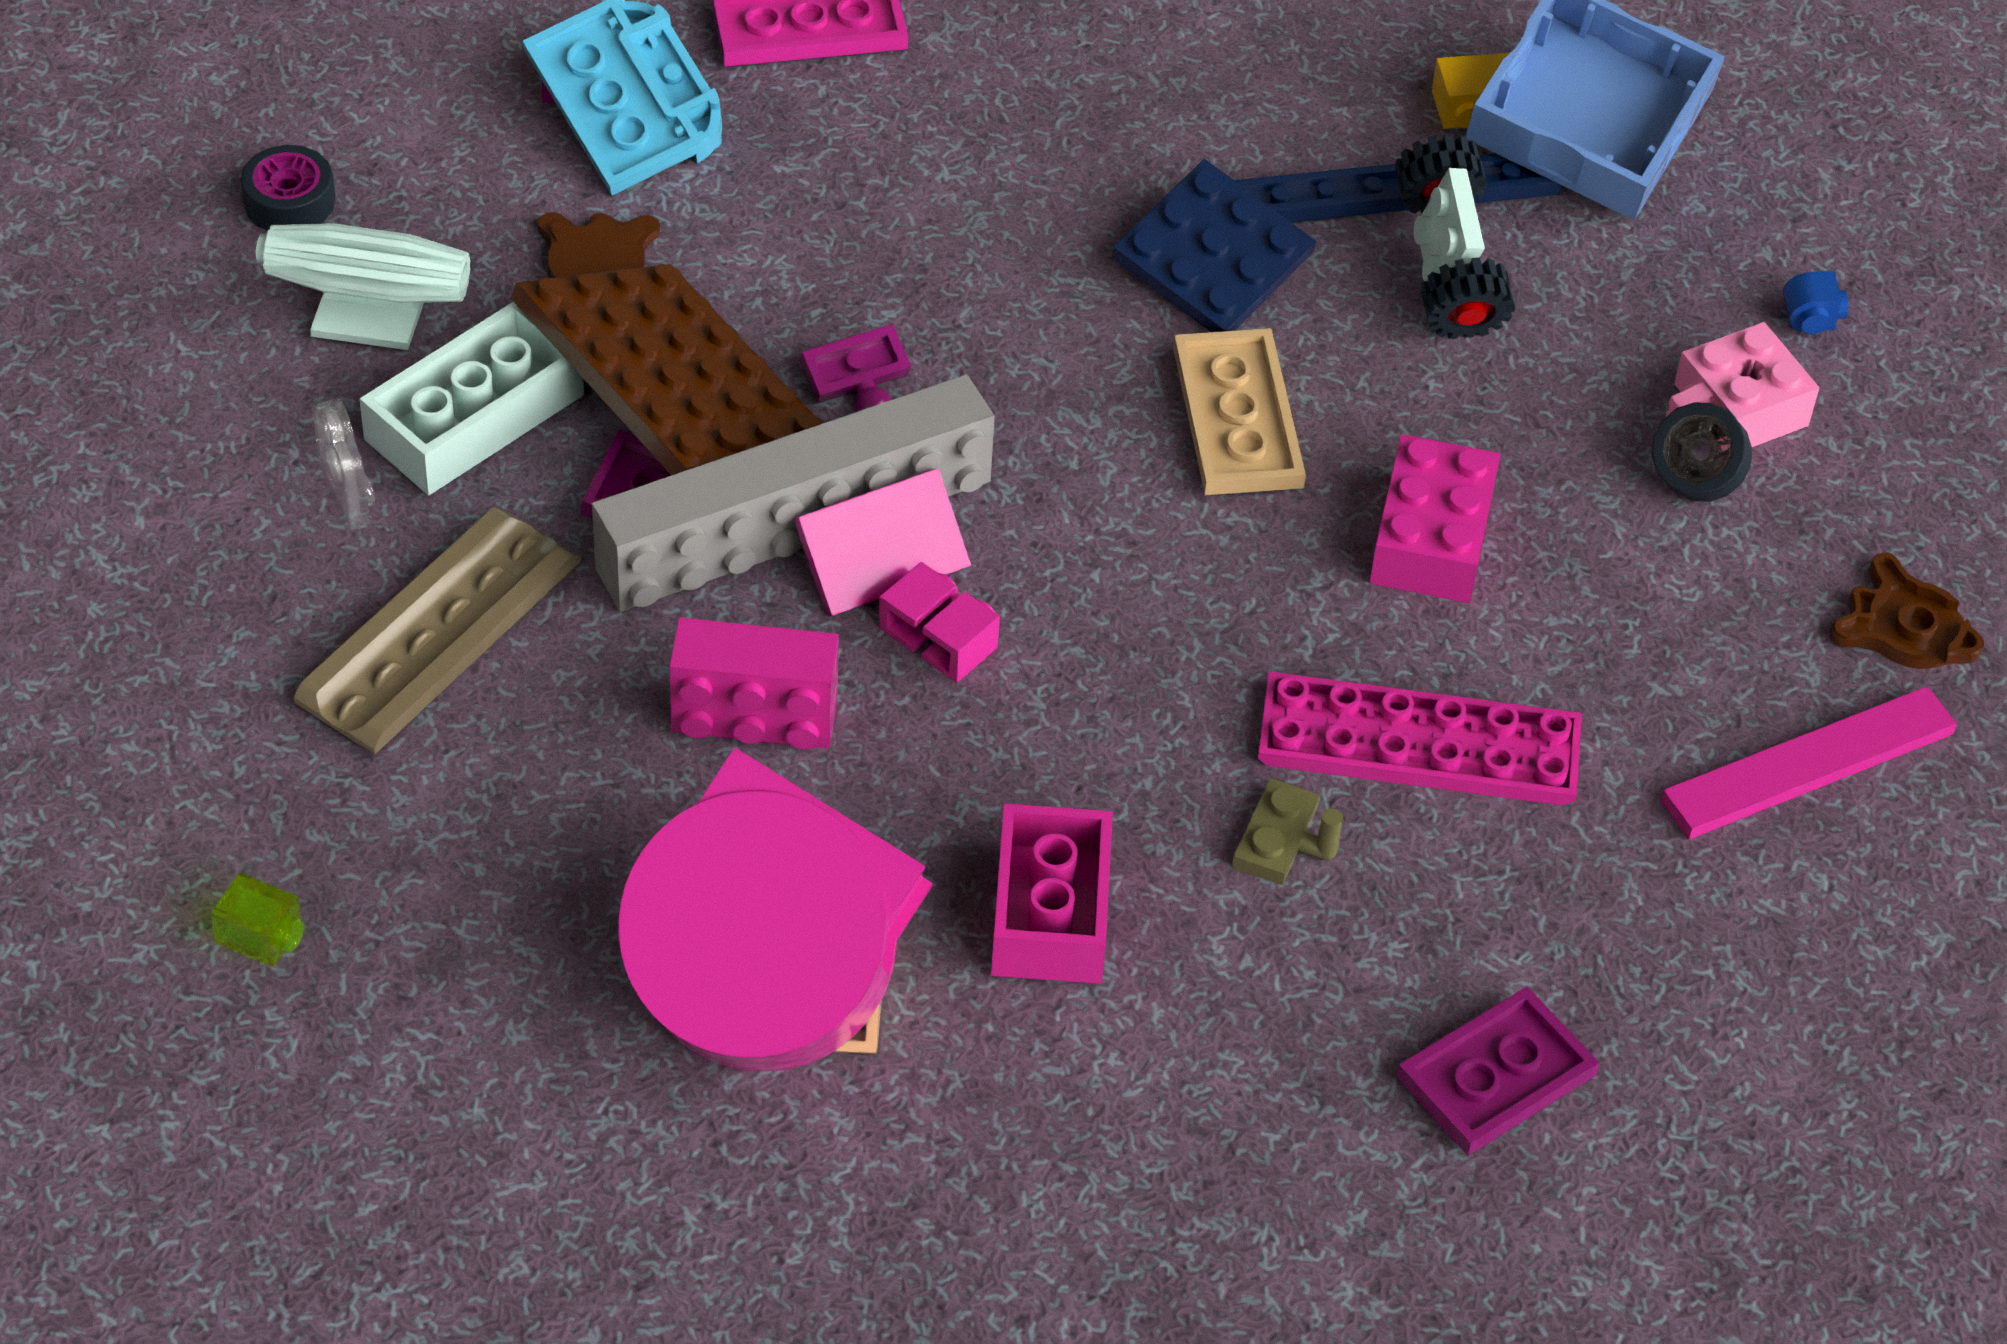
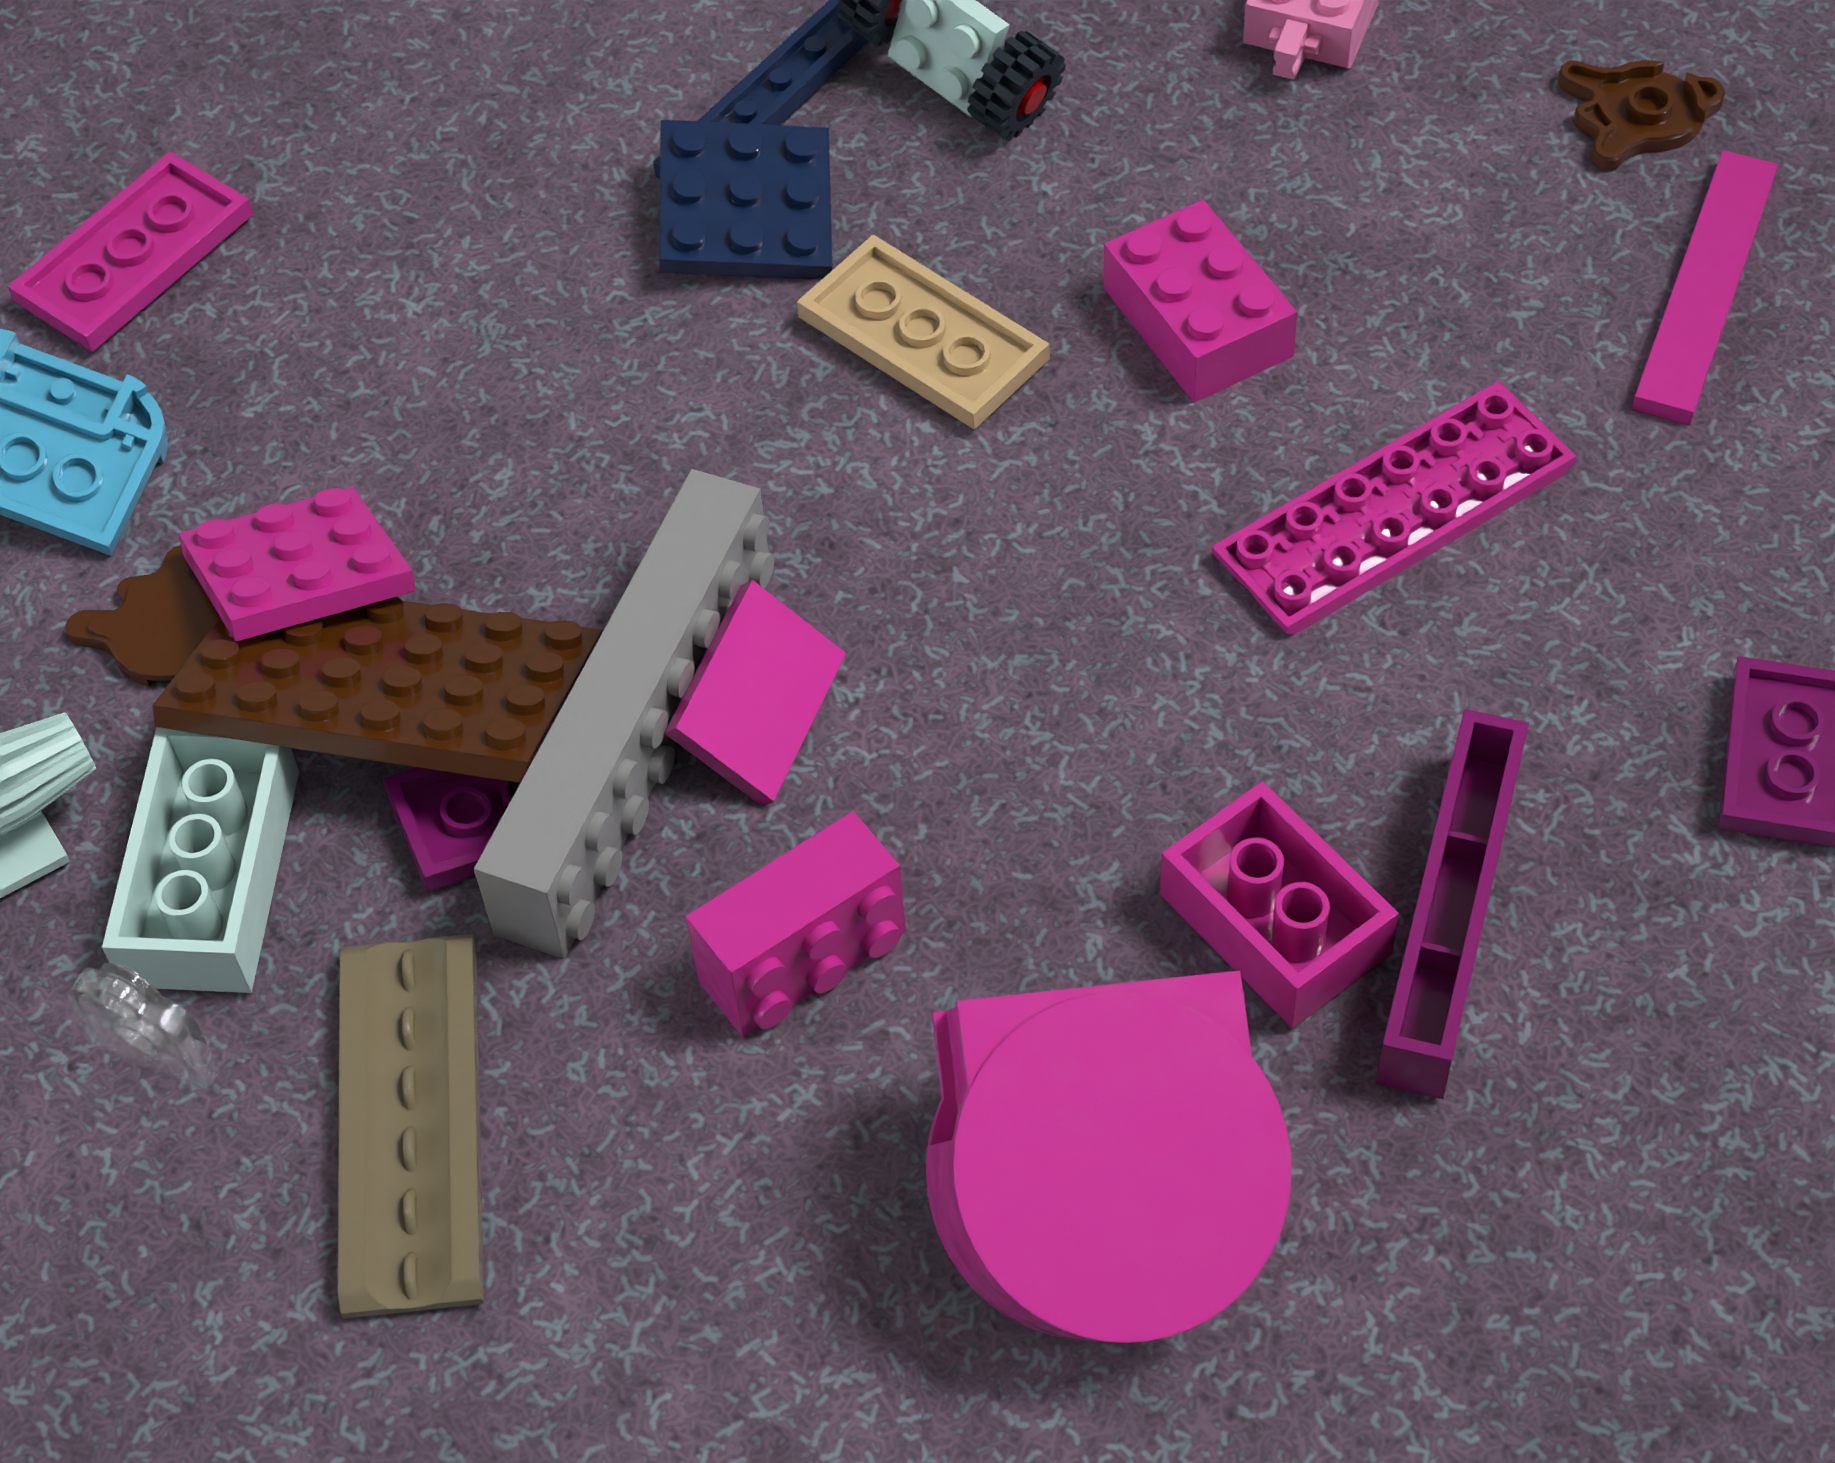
camera: 35 degrees left, 5 degrees up
(697, 269) = (295, 562): none -> dark pink plate
(856, 366) = (540, 543): magenta plate -> none
(929, 607) = (851, 727): dark pink piece -> none
(1161, 975) = (1452, 905): none -> magenta brick
(1280, 831) = (1381, 689): olive plate -> none
(1690, 429) = (1357, 52): wheel -> none

